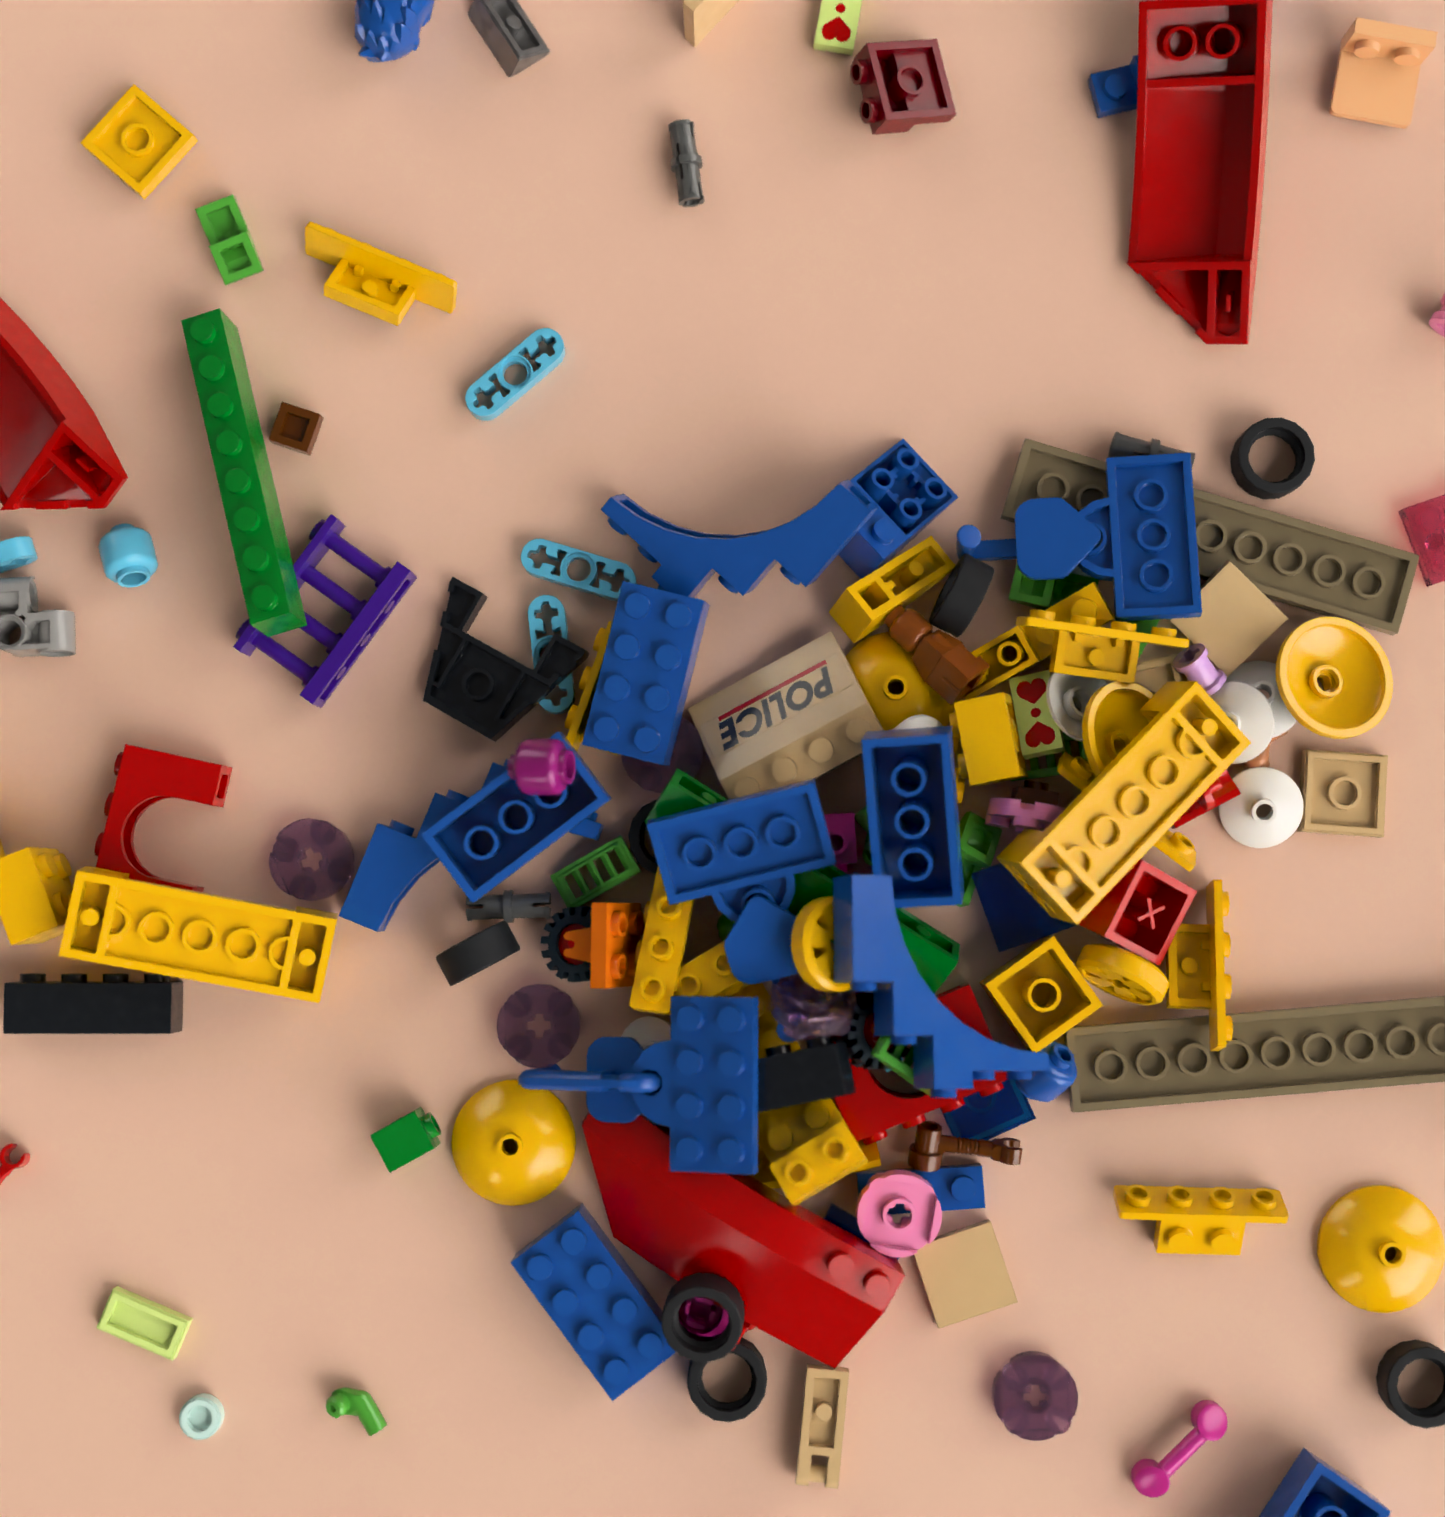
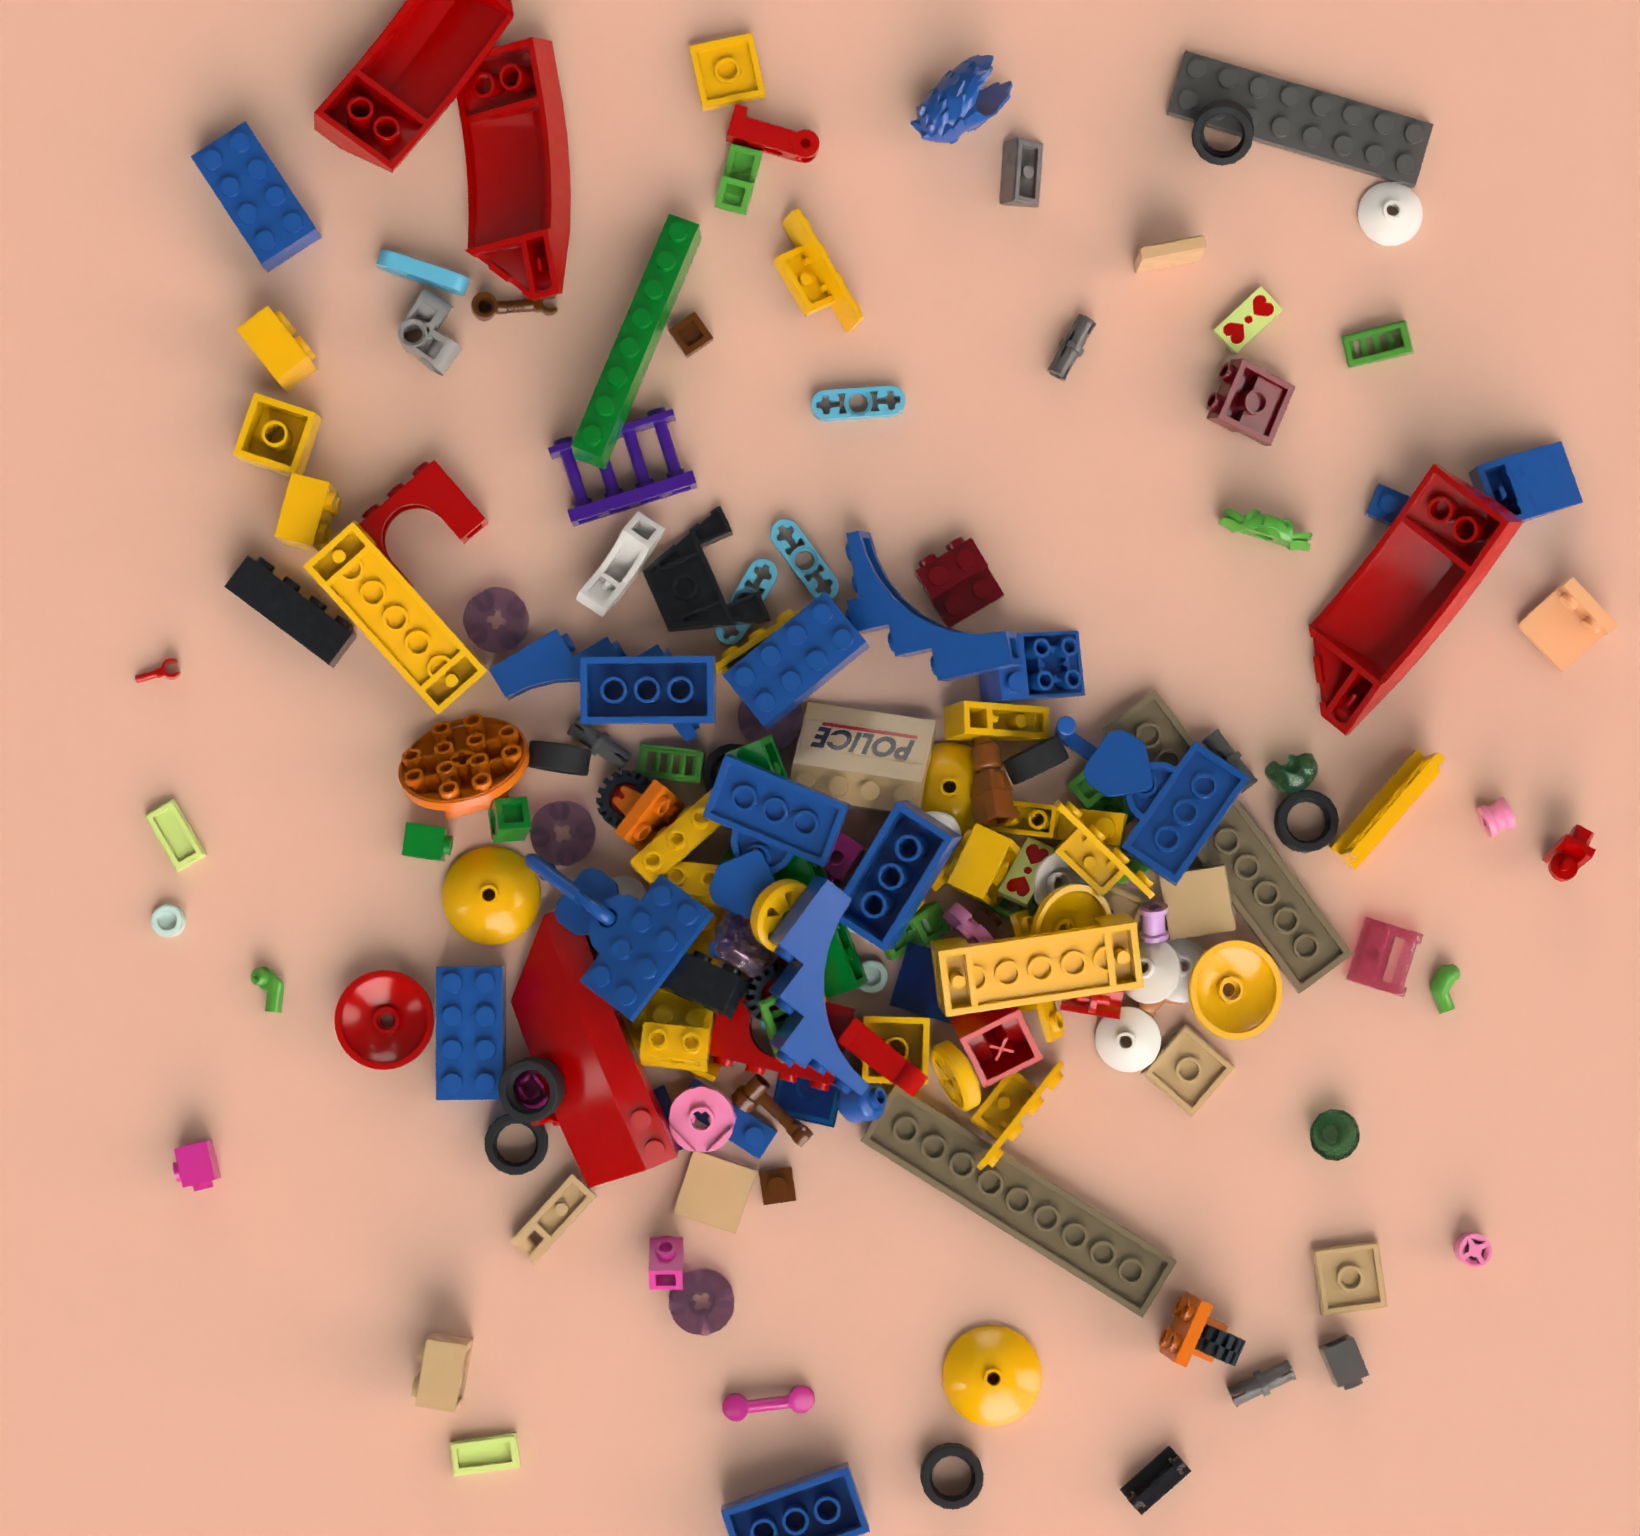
camera: 30 degrees right, 0 degrees up
(61, 544) = (504, 307): none -> reddish brown brick
(128, 555) = (523, 338): medium azure head -> none
(233, 174) = (771, 139): none -> red leg
(386, 1034) = (465, 765): none -> orange bracket
(397, 709) = (621, 565): none -> white arch
(474, 1052) = (509, 819): none -> green brick
(491, 1384) = (361, 1026): none -> red dish
(542, 766) = (686, 671): magenta head -> none
(747, 476) = (958, 581): none -> dark red plate
(962, 931) = (876, 976): none -> light aqua tile
(971, 1387) = (666, 1263): none -> dark pink brick
(1022, 1219) = (777, 1186): none -> reddish brown plate
(1028, 190) = (1266, 528): none -> bright green piece
(1037, 1014) = (882, 1057): none -> red leg
(1199, 1217) = (889, 1267): yellow bracket -> none
(1226, 420) = (1294, 775): none -> clear green hair
(1345, 381) = (1387, 807): none -> yellow fence

